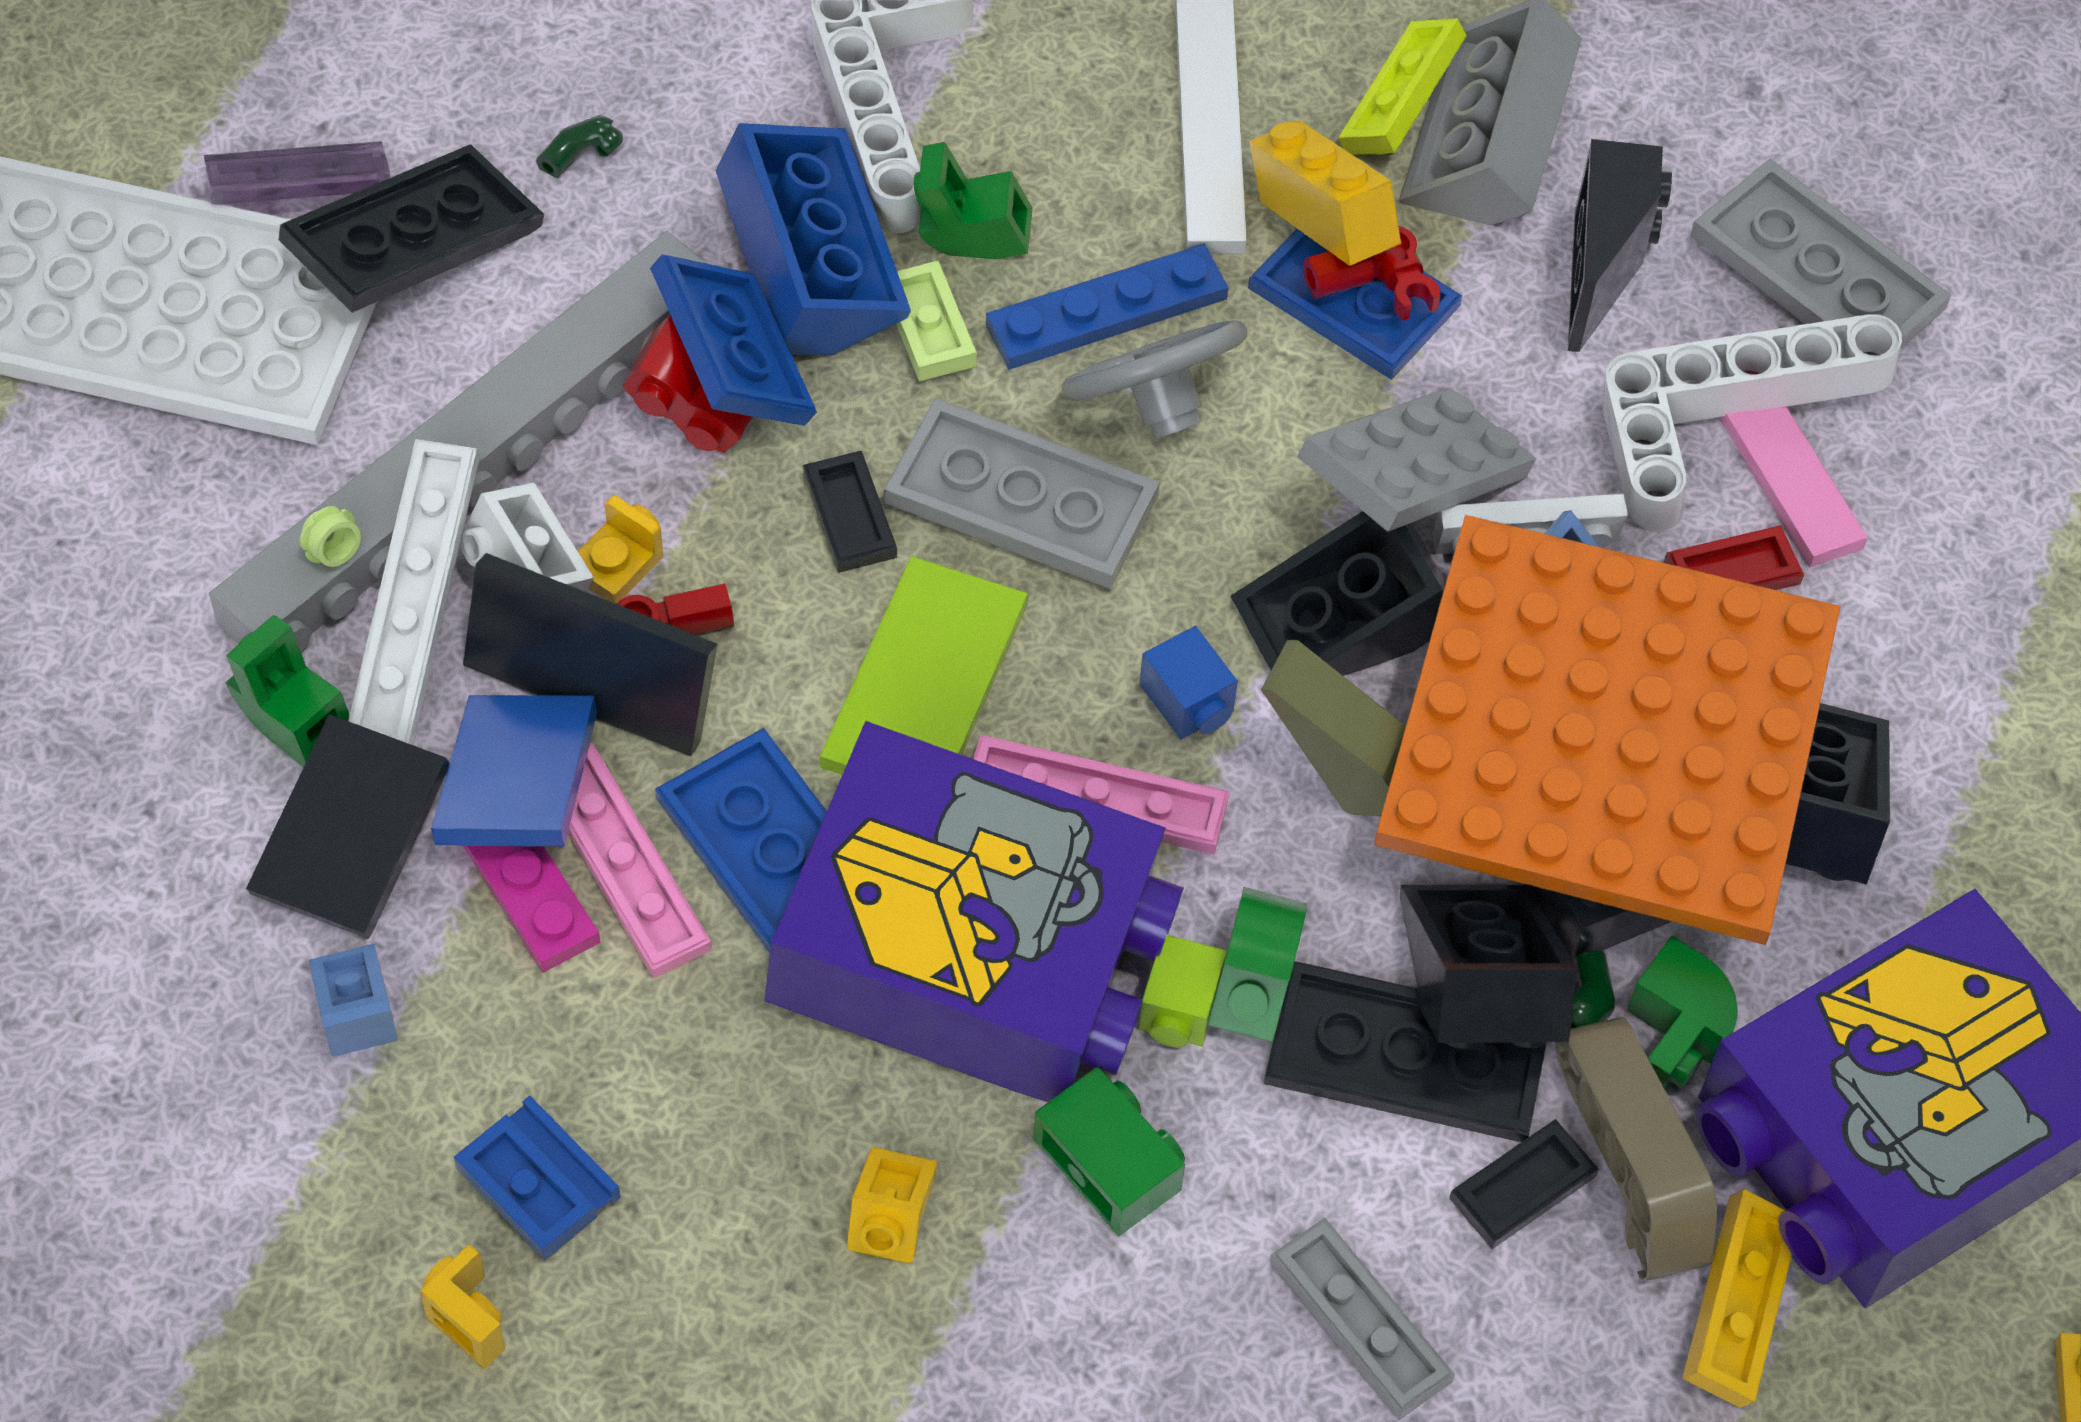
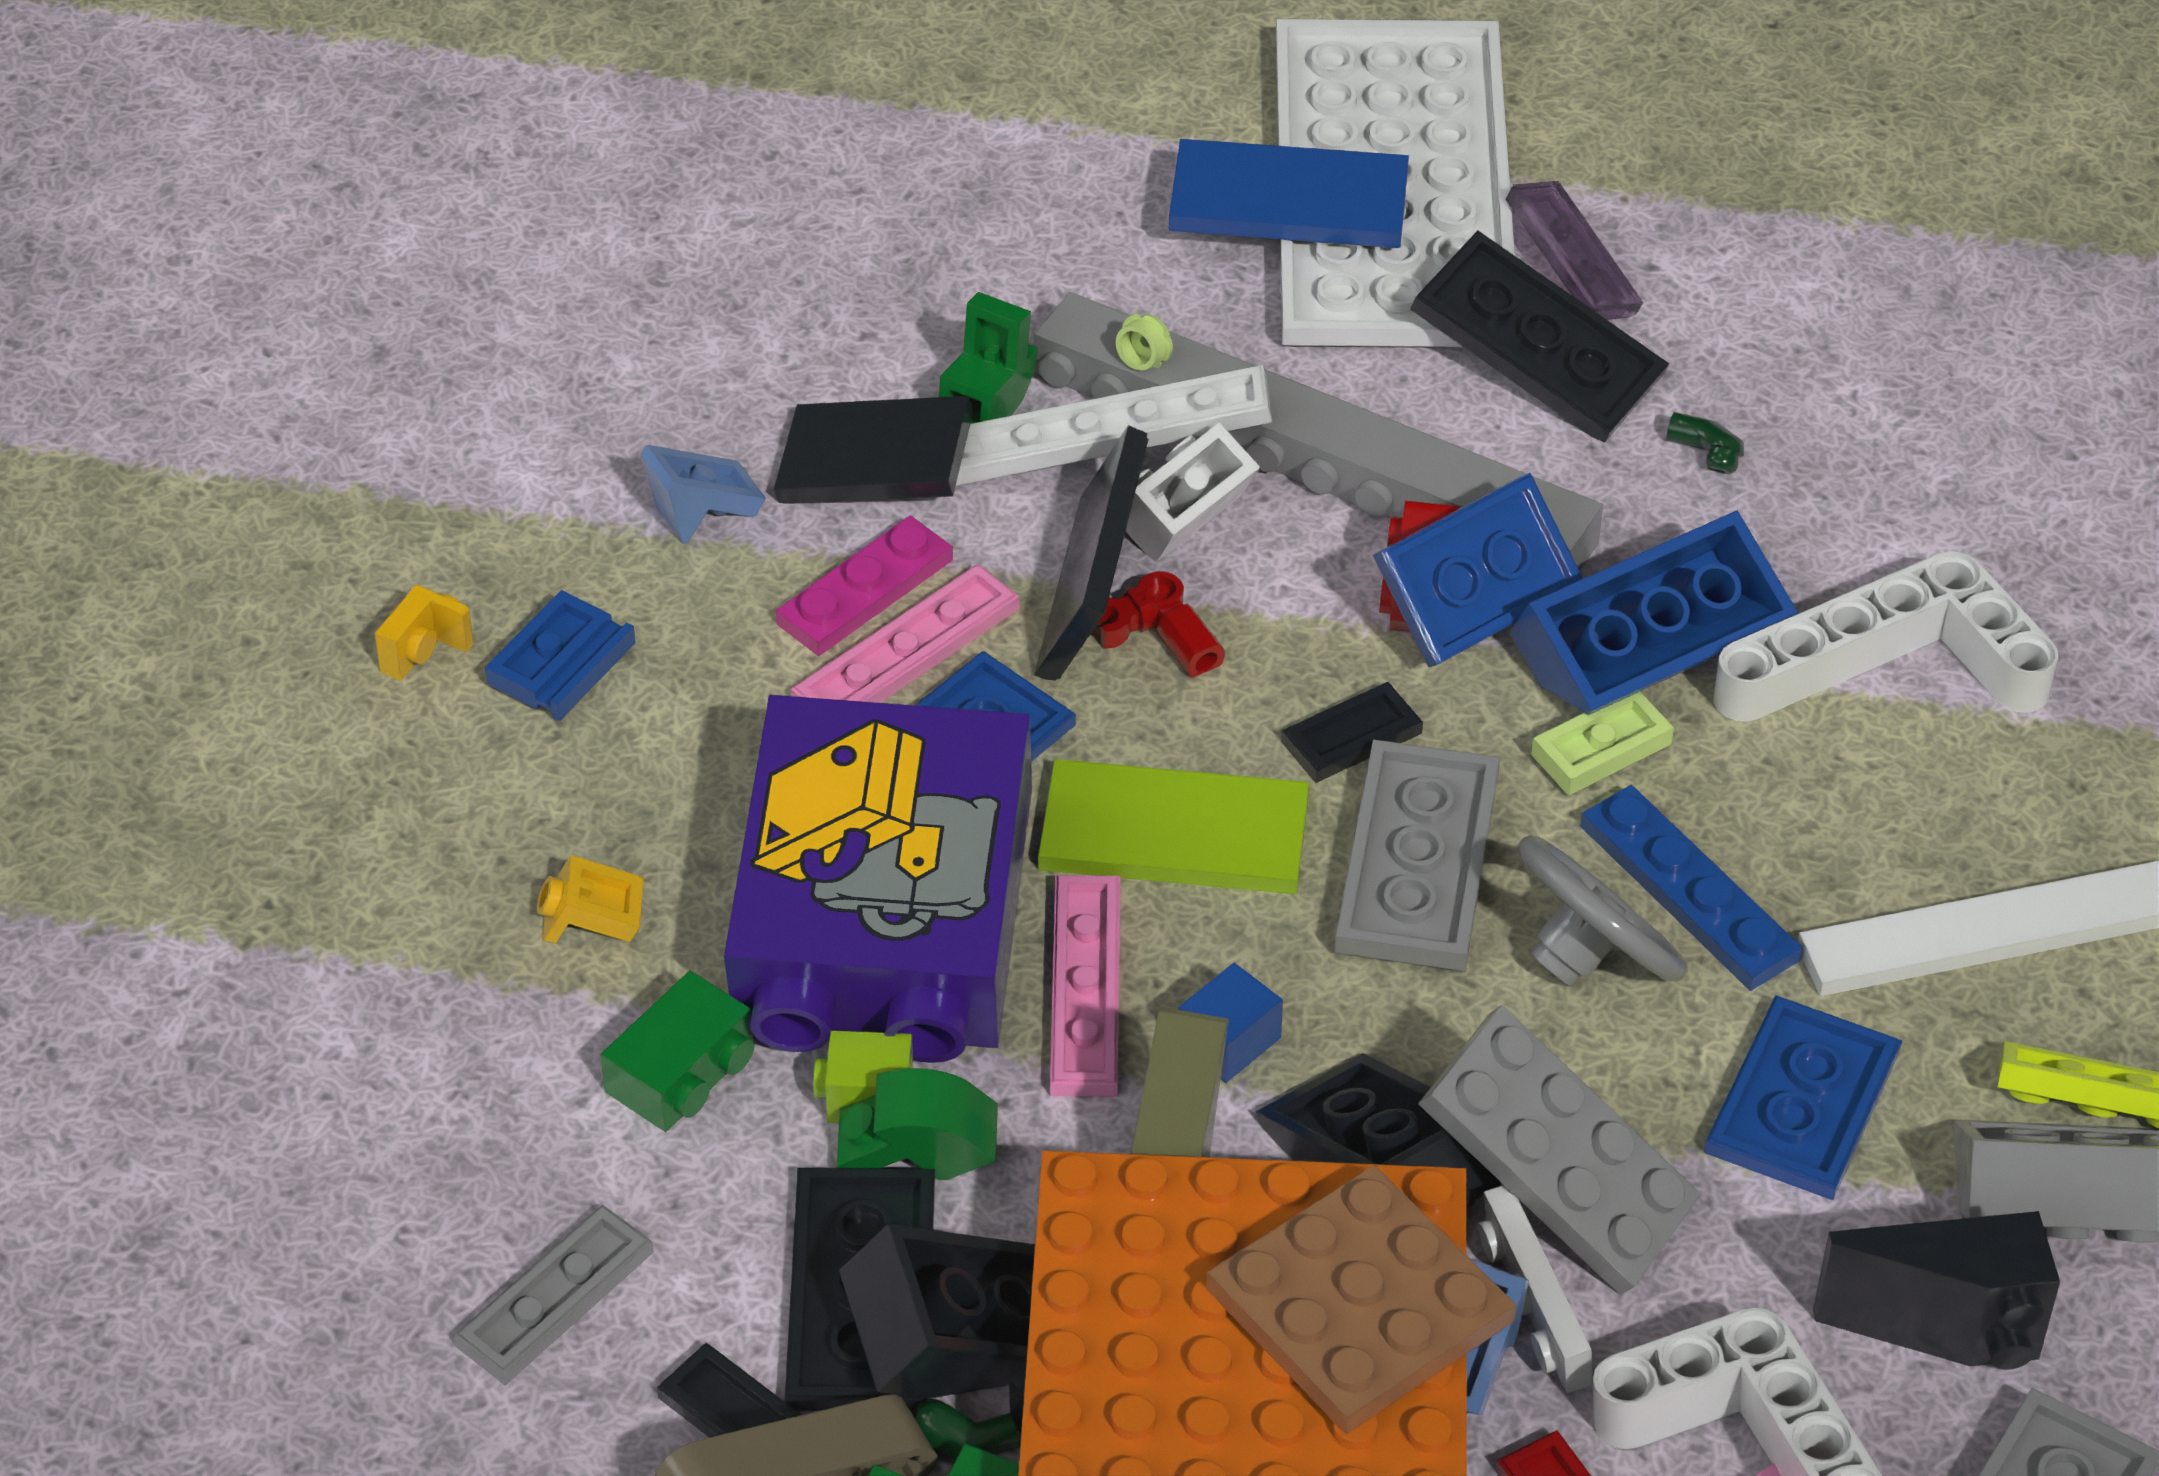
camera: 80 degrees right, 10 degrees down
(131, 376) = (1289, 193): none -> blue tile
(515, 771) = (960, 539): blue tile -> none
(622, 549) = (1236, 571): yellow bracket -> none
(970, 216) = (1742, 733): green brick -> none
(1325, 192) = (1884, 1009): yellow brick -> none
(1395, 267) = (1838, 1098): red bar -> none
(1610, 616) = (1360, 1298): none -> medium nougat plate

